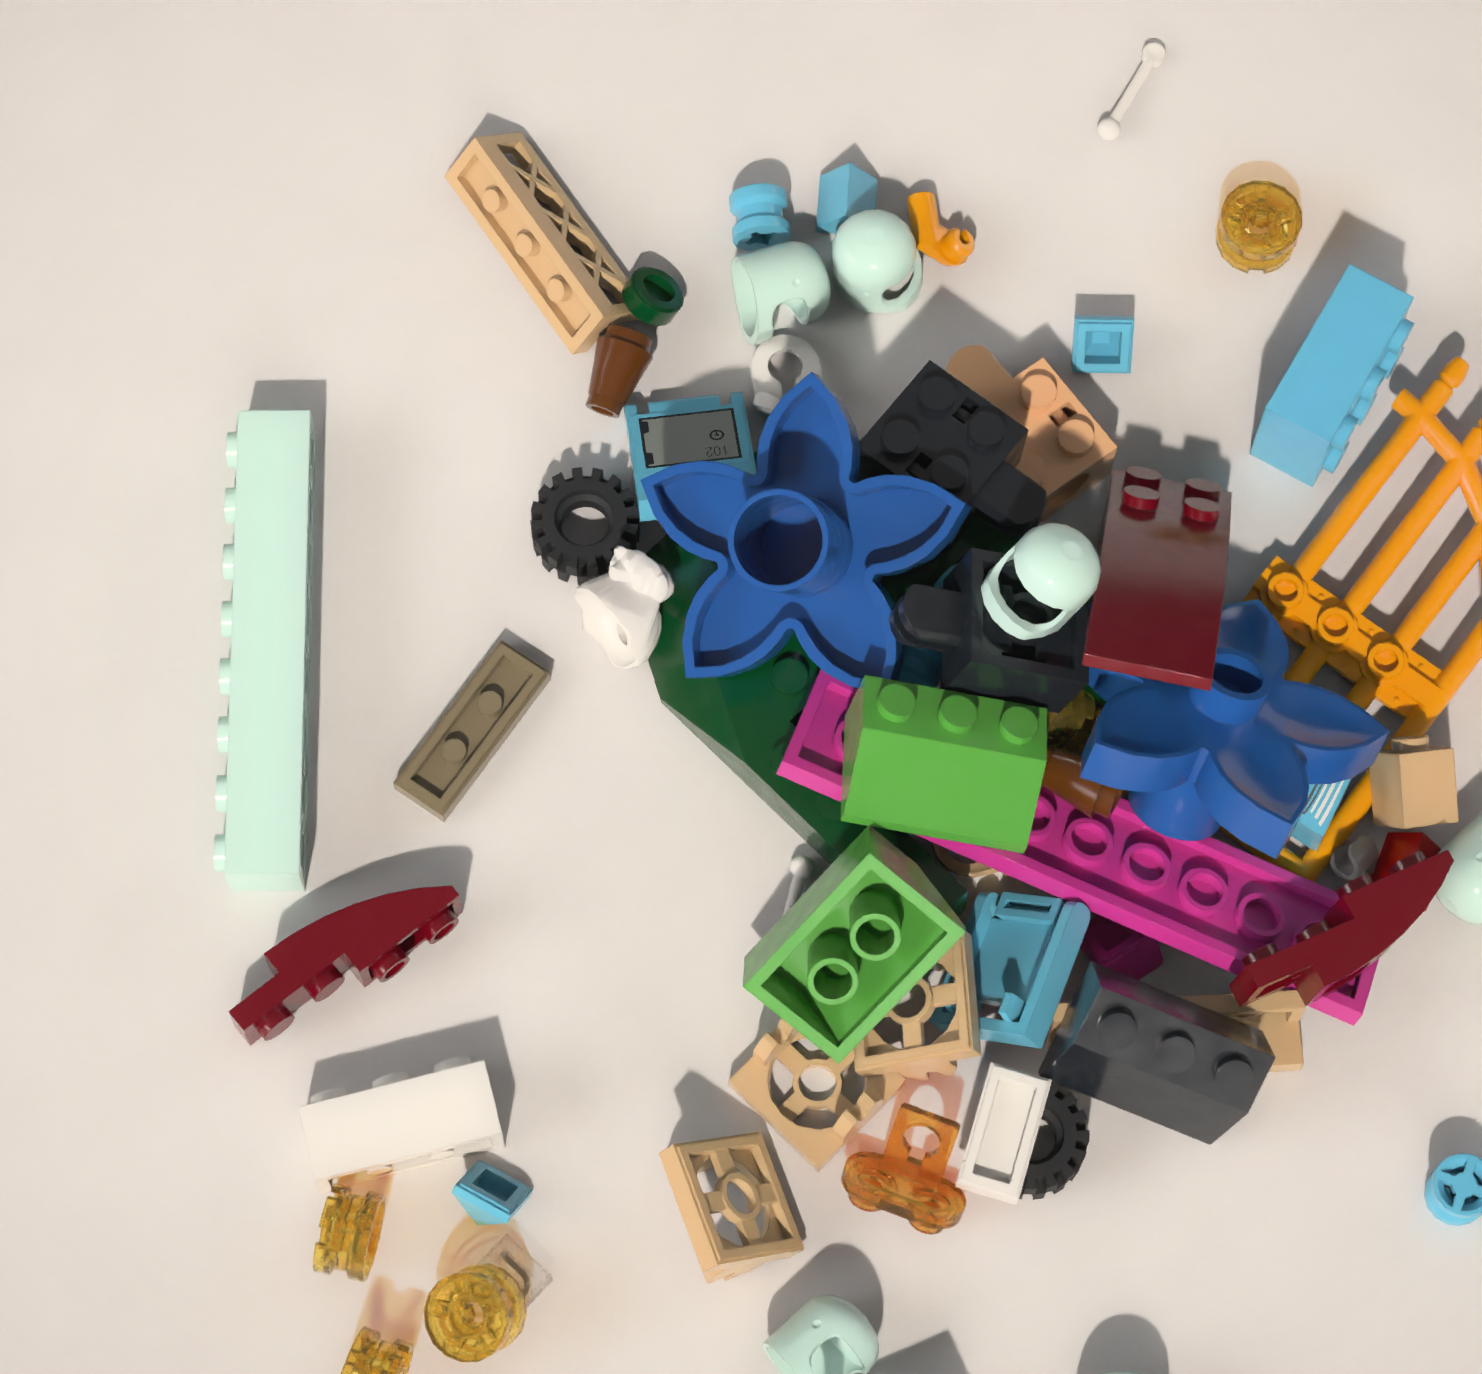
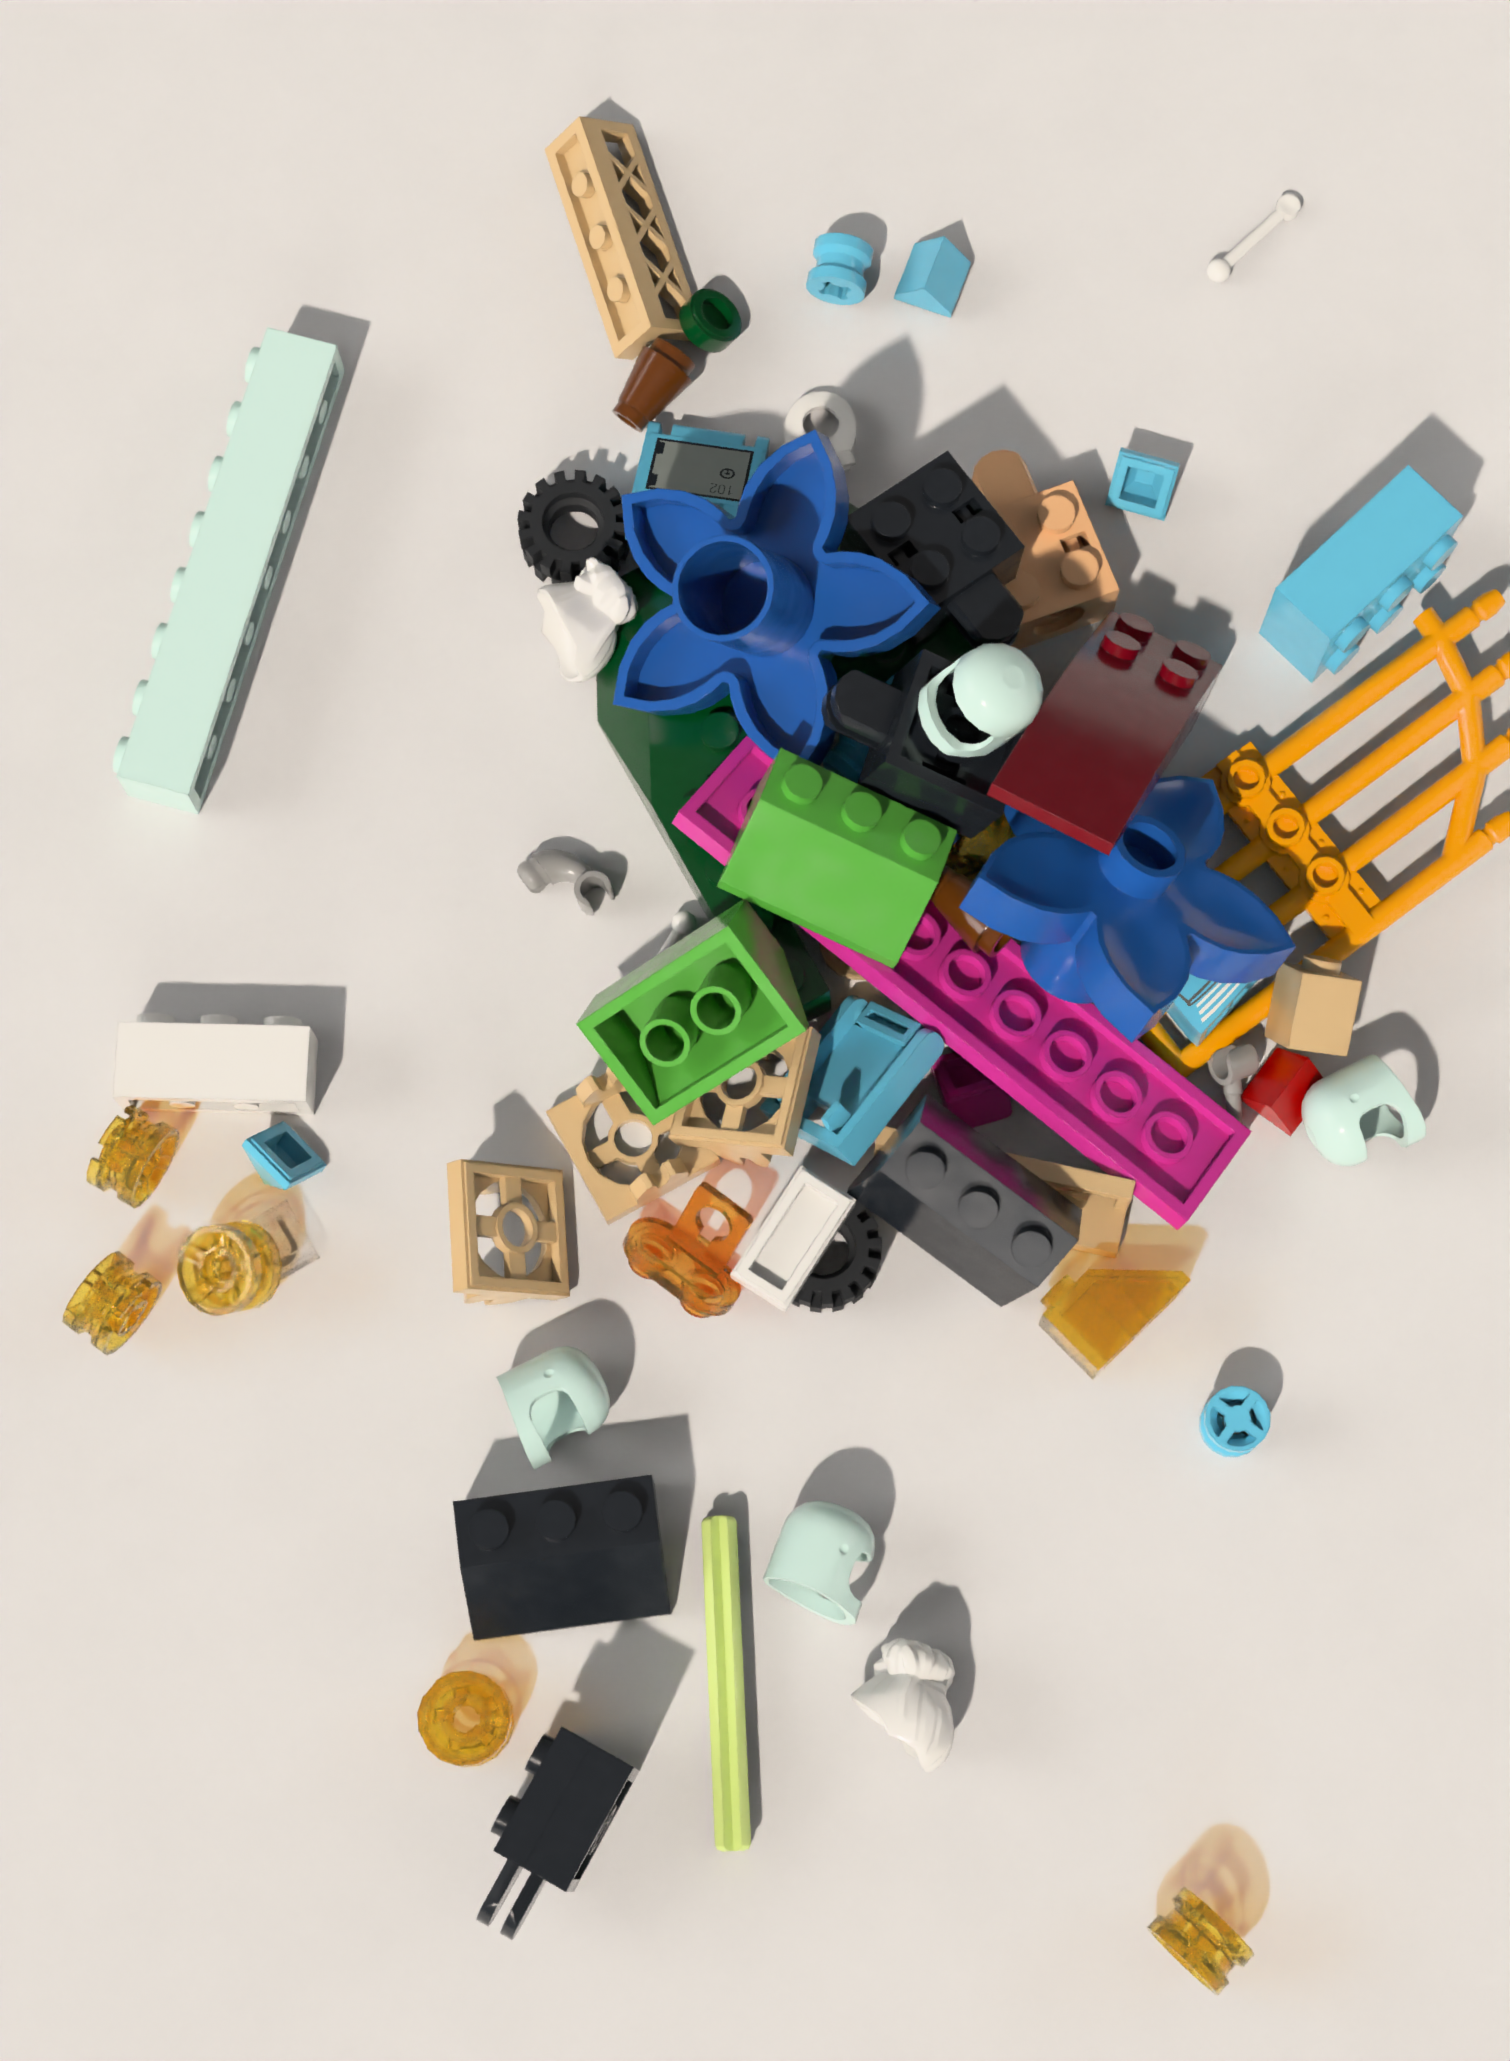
camera: 20 degrees right, 5 degrees up
(363, 937) = (235, 874): dark red slope -> none
(472, 730) = (405, 702): dark tan tile -> none
(667, 845) = (560, 866): none -> light grey arm
(777, 275) = (837, 332): light aqua helmet -> none
(872, 255) = (937, 334): light aqua helmet -> none
(933, 239) = (1007, 334): light orange arm -> none
(1261, 206) = (1349, 387): clear yellow wheel -> none
(1311, 1121) = (1106, 1311): none -> clear yellow slope
(1350, 938) = (1213, 1135): dark red slope -> none

